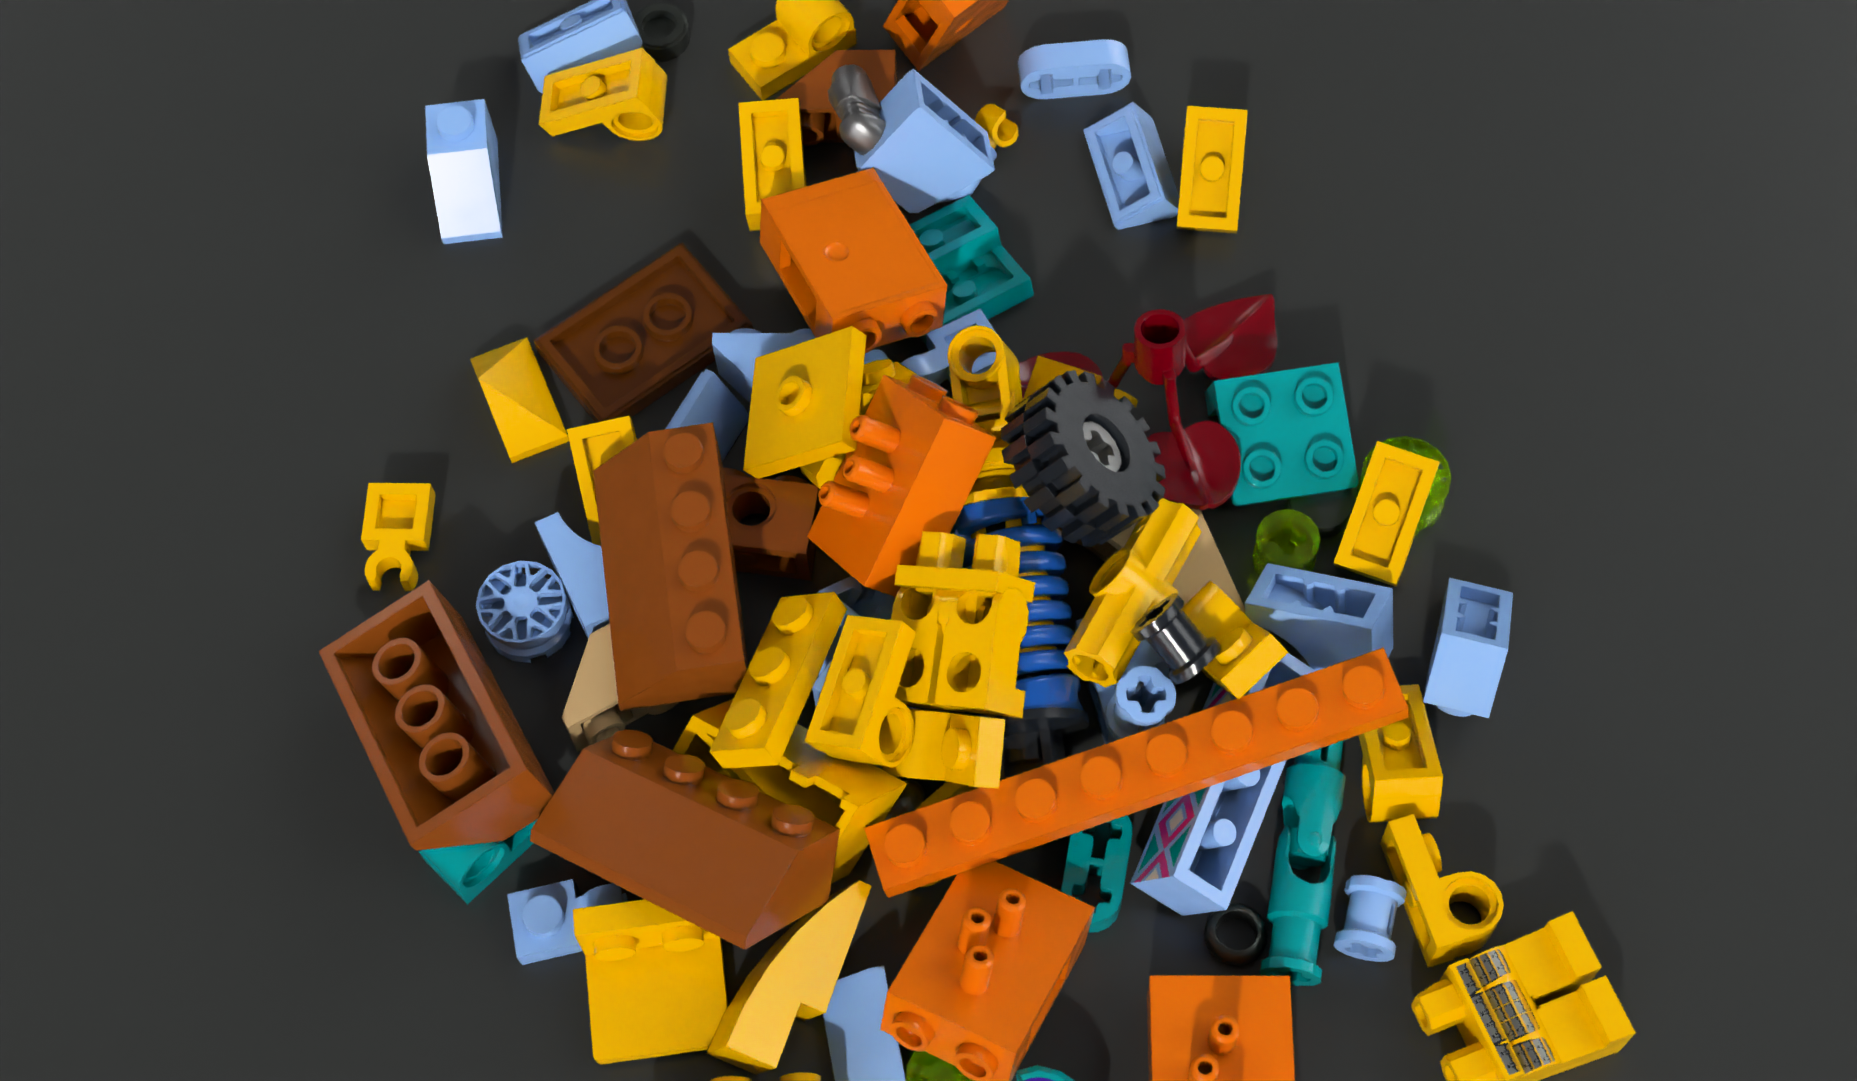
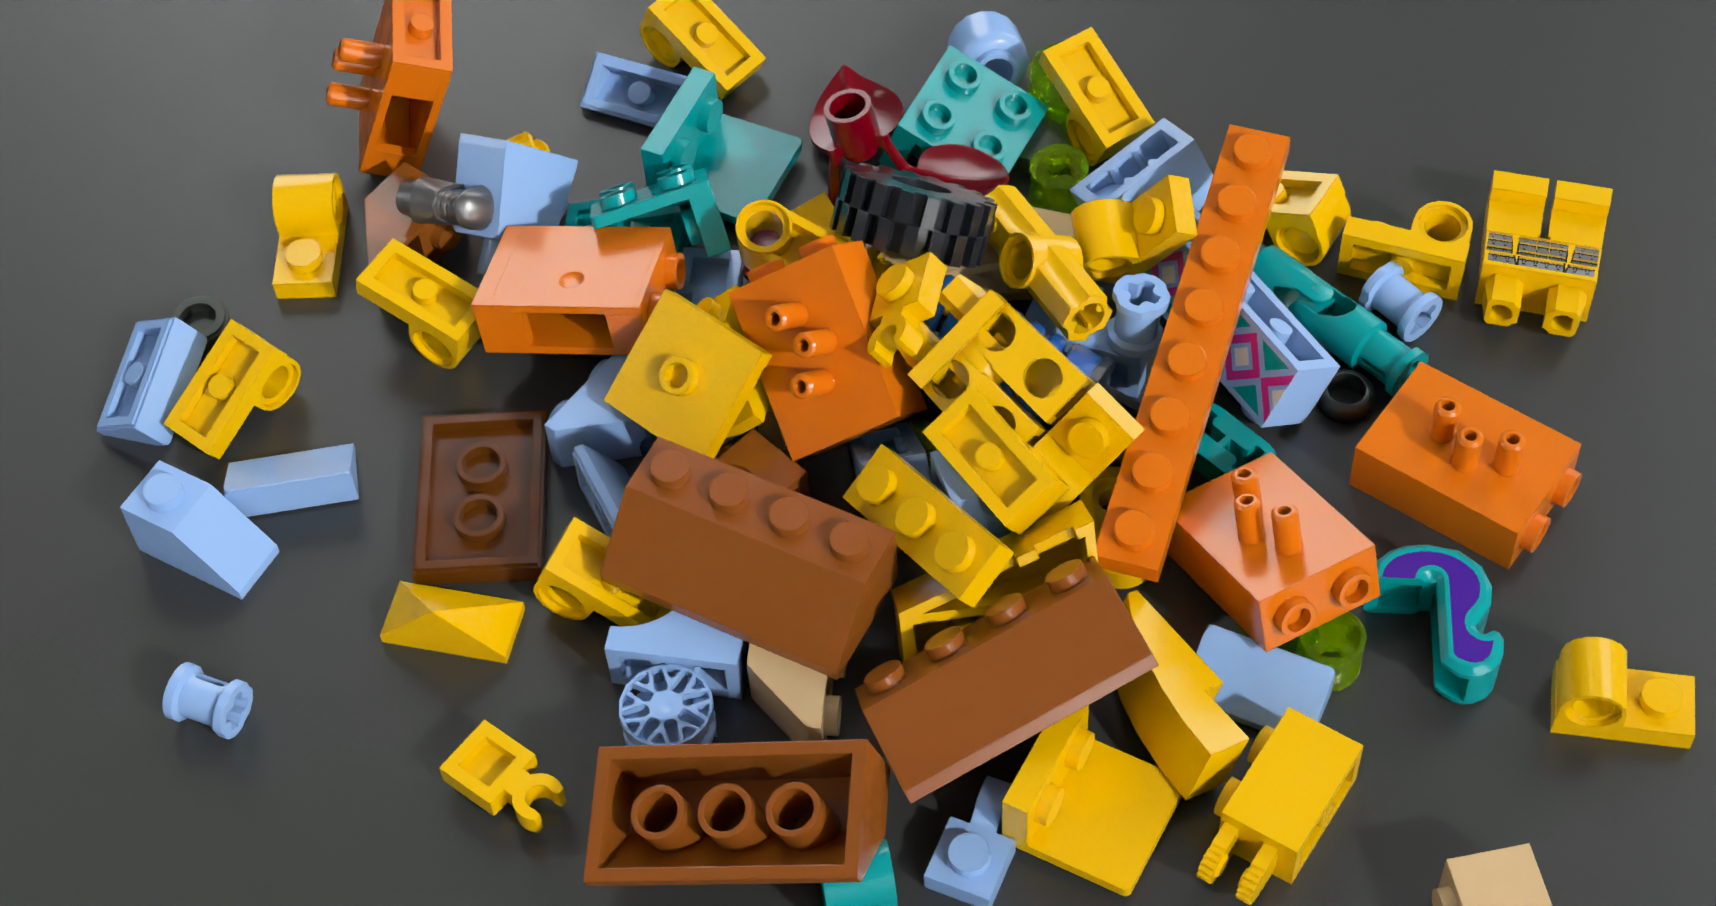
camera: 55 degrees left, 10 degrees down
(328, 287) = (207, 700): none -> light blue bush
(564, 197) = (293, 480): none -> light blue slope
(953, 514) = (904, 299): none -> yellow plate
(1007, 272) = (674, 185): none -> teal bracket
(1074, 69) = (526, 74): light blue beam -> none
(1095, 264) = (740, 157): none -> teal bracket
(1176, 639) = (1116, 243): black bush -> none
(1383, 397) = (993, 43): none -> light blue head
(1469, 649) = (1234, 100): light blue arch -> none

